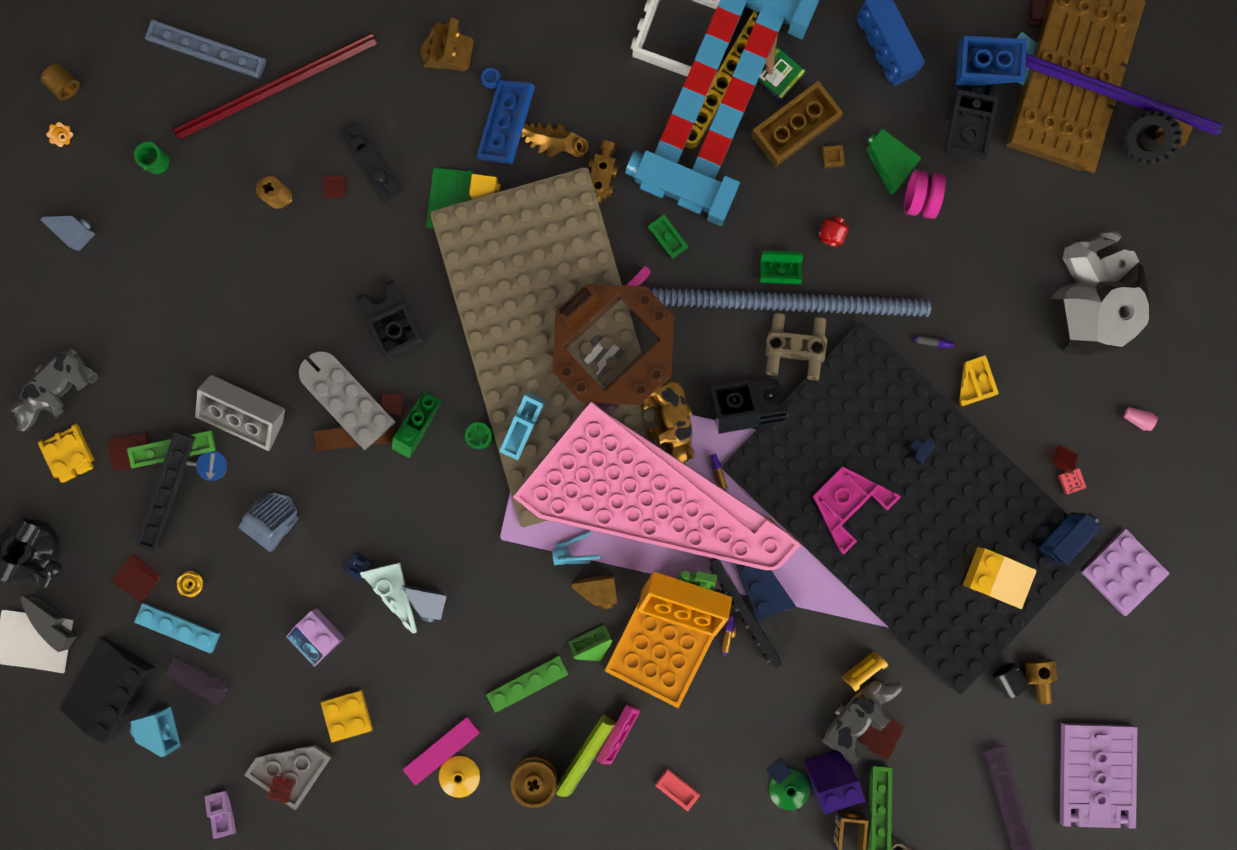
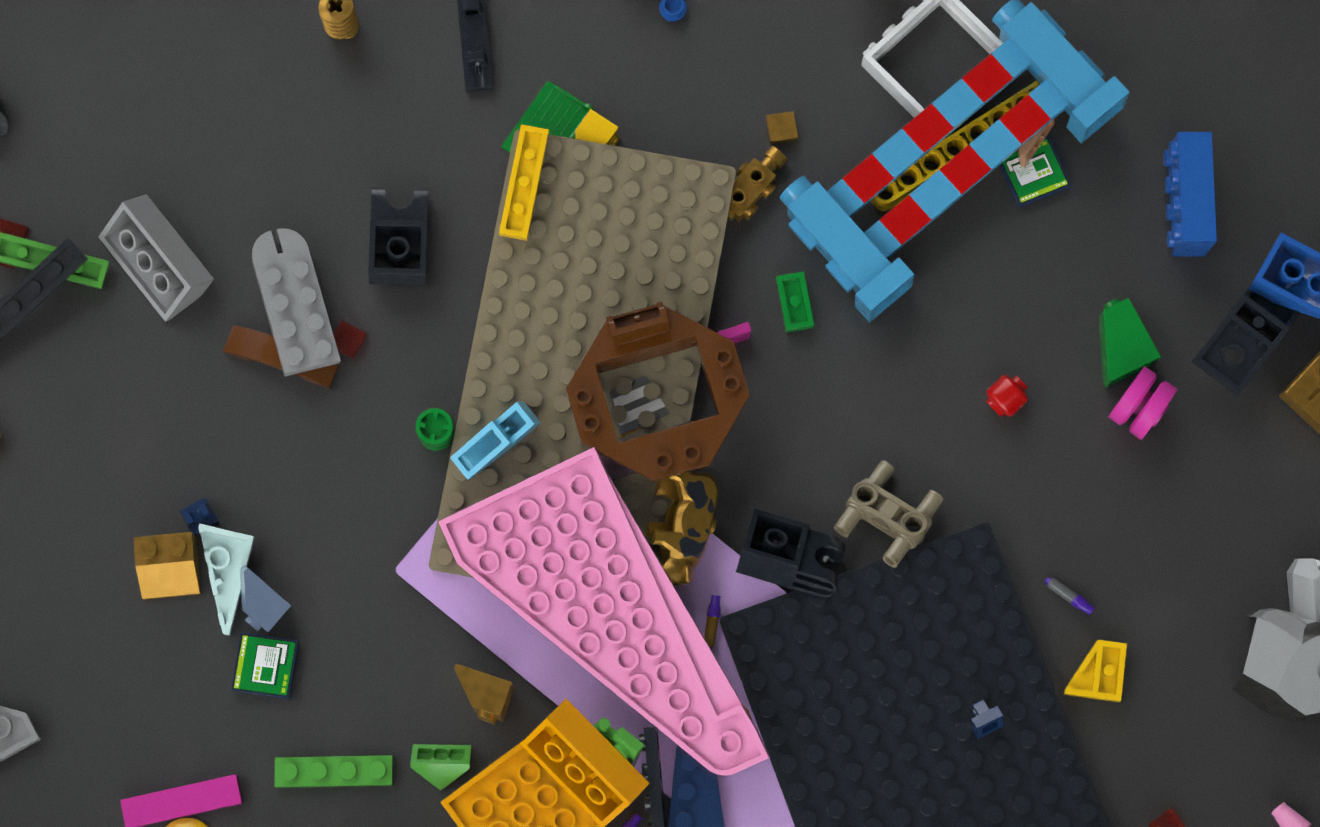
camera: 25 degrees right, 10 degrees down
(210, 465) = (85, 304): blue piece -> none
(270, 519) = (122, 405): sand blue piece -> none
(315, 636) = (99, 577): lavender slope -> none
(334, 187) = (414, 45): clear red tile -> none
(346, 716) = (86, 697): yellow plate -> none
(353, 608) = (167, 565): none -> pearl gold slope
(415, 425) = (362, 378): green slope -> none
(449, 639) = (265, 666): none -> tile
(454, 246) = (524, 182): none -> yellow plate
(505, 121) = (663, 67): blue plate -> none
(554, 140) = (712, 117): pearl gold plant -> none
(561, 555) = (461, 630): medium azure plant -> none
(602, 124) = (781, 128): none -> pearl gold tile
(781, 267) = (918, 407): green bracket -> none
(794, 301) = (912, 457): sand blue piece -> none
(796, 124) = (1023, 242): pearl gold brick -> none
(833, 156) = (1052, 304): pearl gold tile -> none
(843, 497) = (855, 728): dark pink wing -> none

